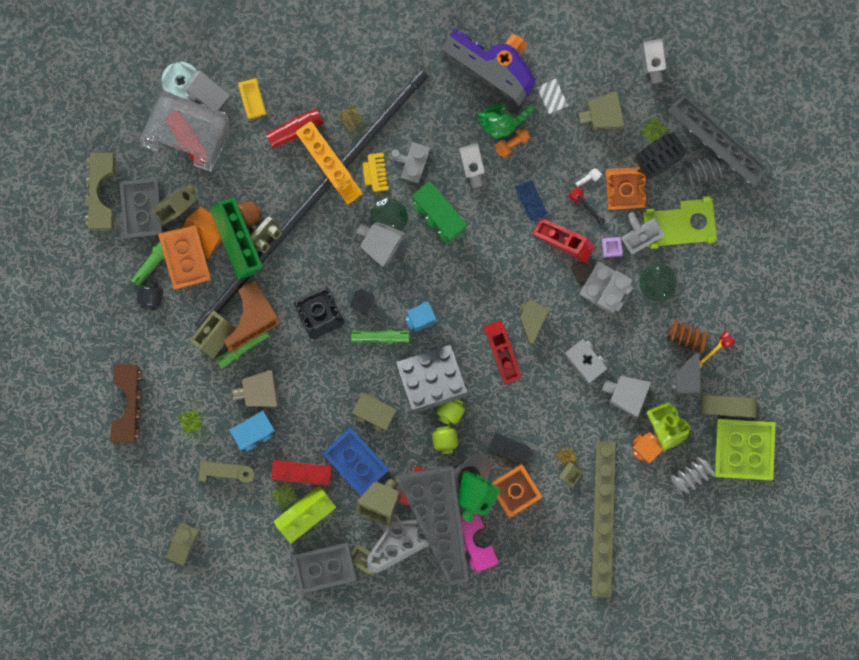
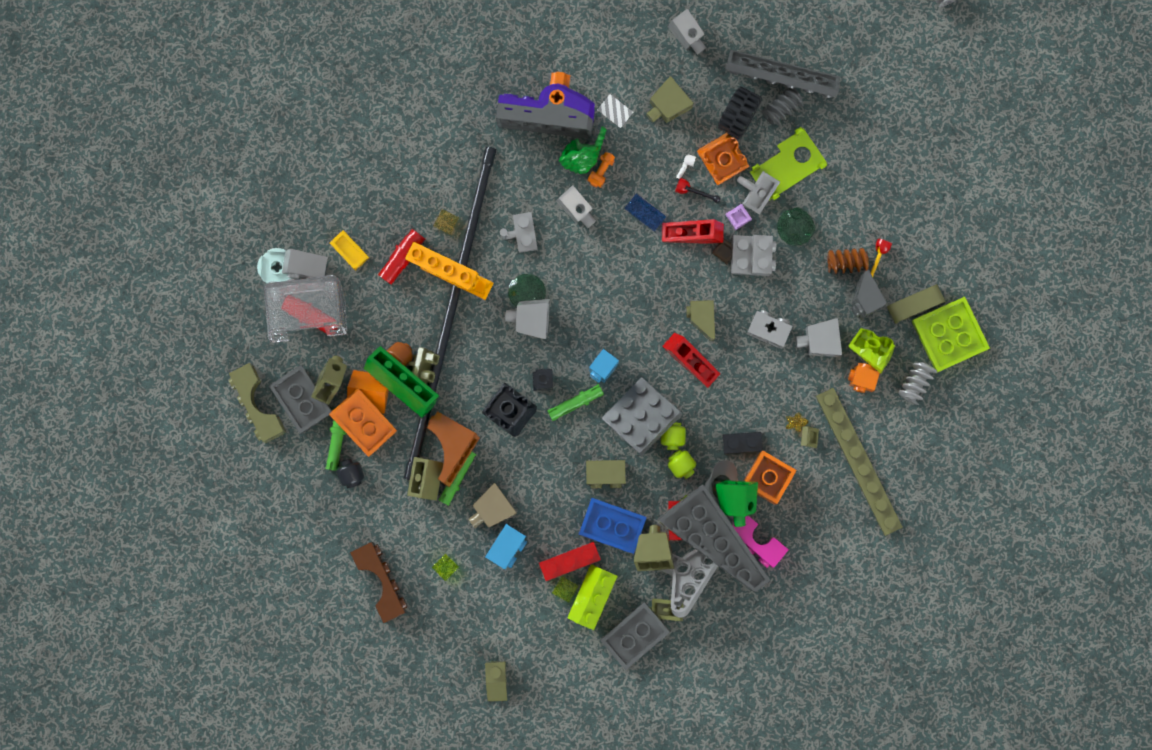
camera: 20 degrees left, 0 degrees up
(243, 473) = (517, 588): olive leg -> none
(371, 175) = (490, 260): yellow piece -> none
(438, 213) = (570, 266): green brick -> none
(654, 129) = (720, 94): clear neon green tile -> none

